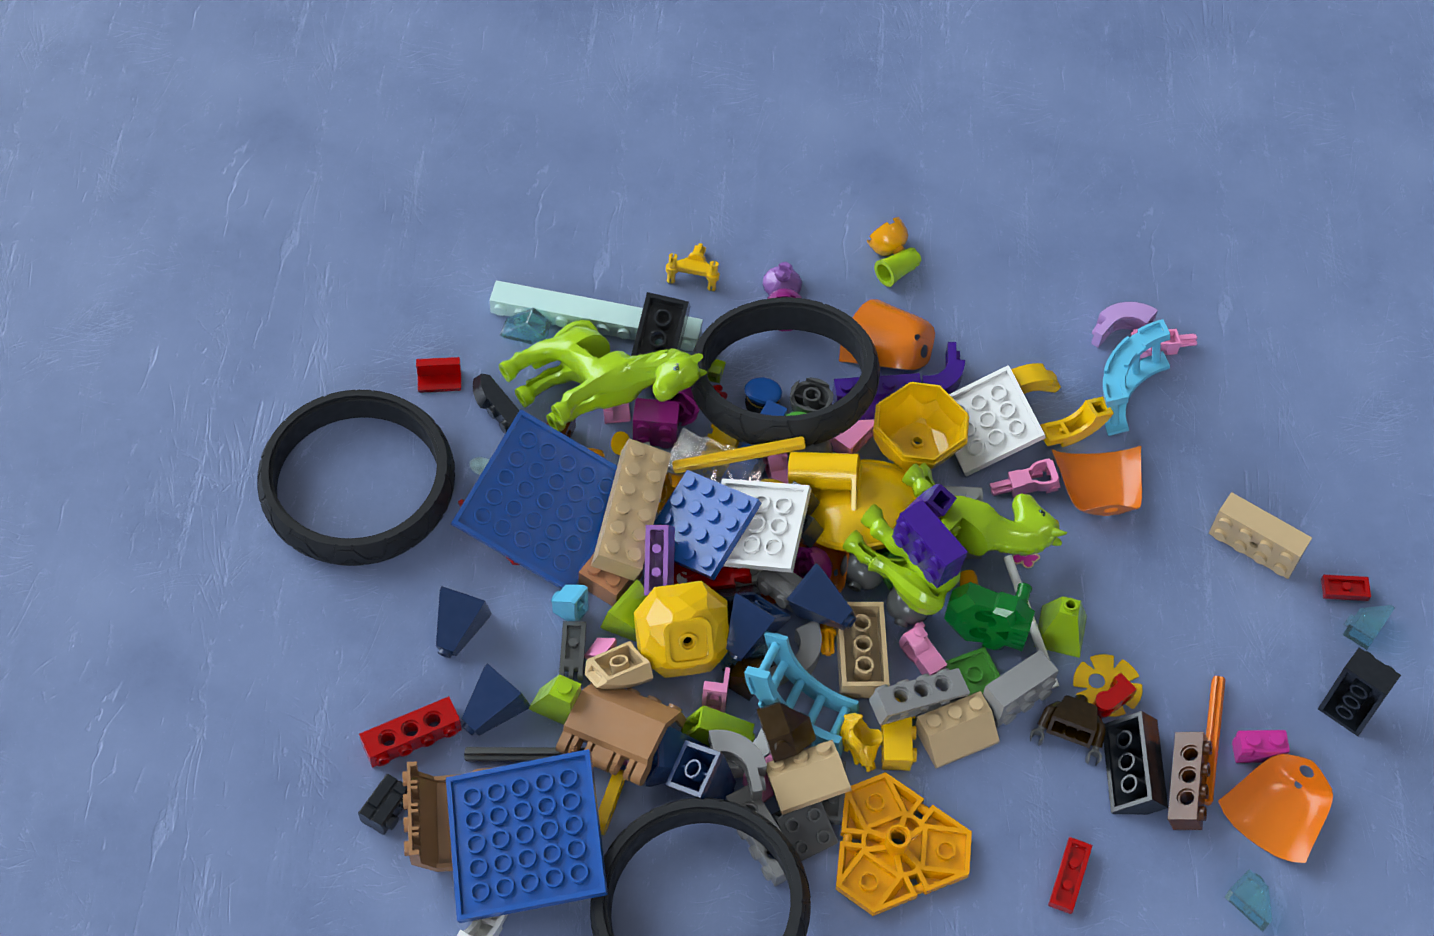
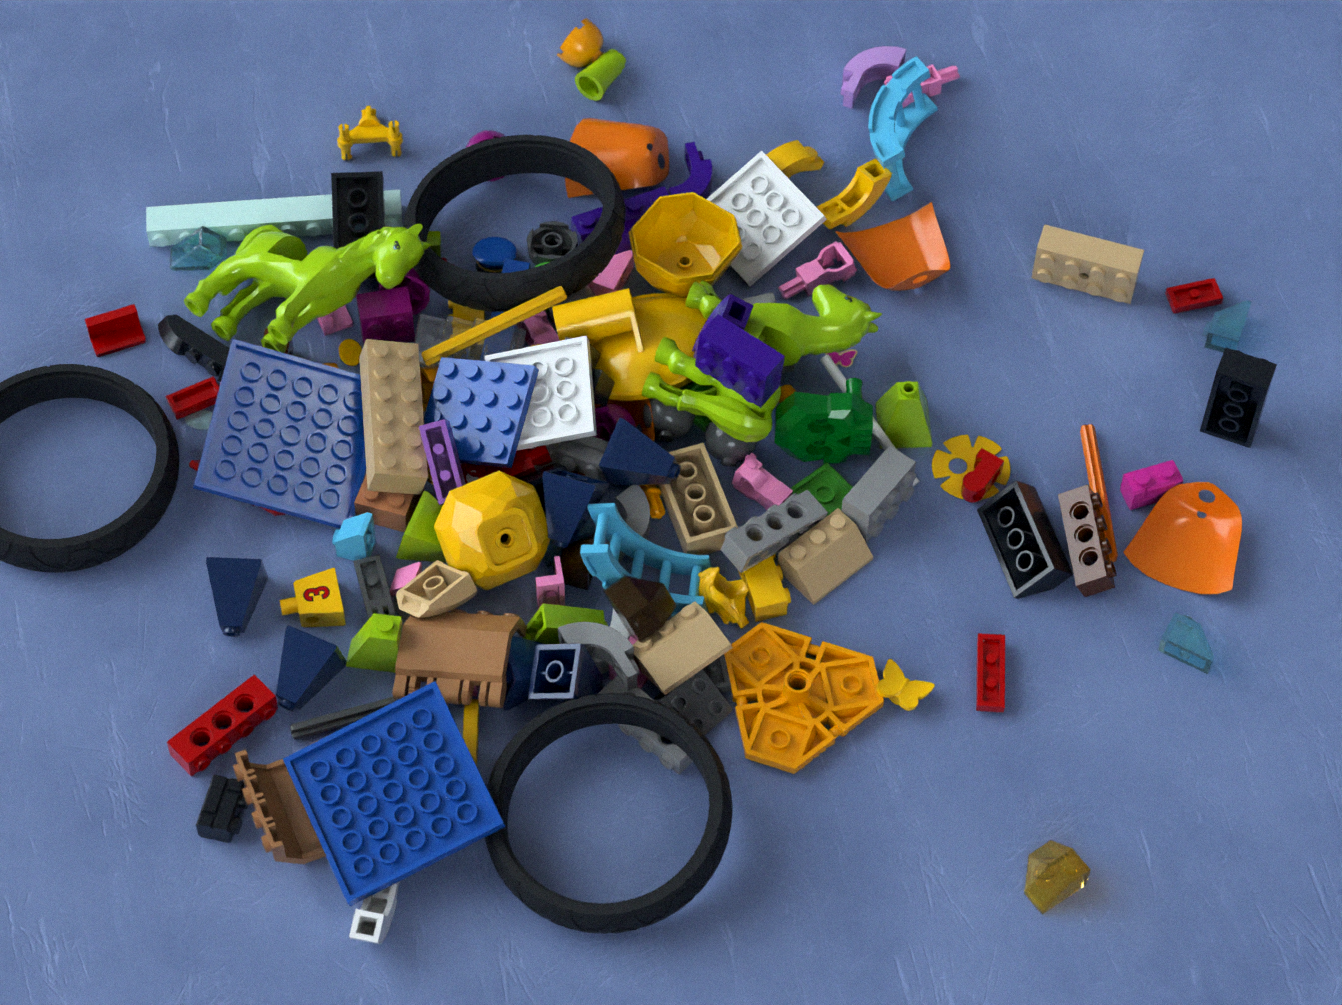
camera: 15 degrees left, 0 degrees up
(480, 447) = (193, 398): none -> red tile
(522, 646) = (316, 600): none -> yellow torso
(782, 277) = (472, 121): medium lavender hair -> none
(987, 867) = (900, 689): none -> yellow animal
(1073, 721) = (947, 513): dark brown torso -> none

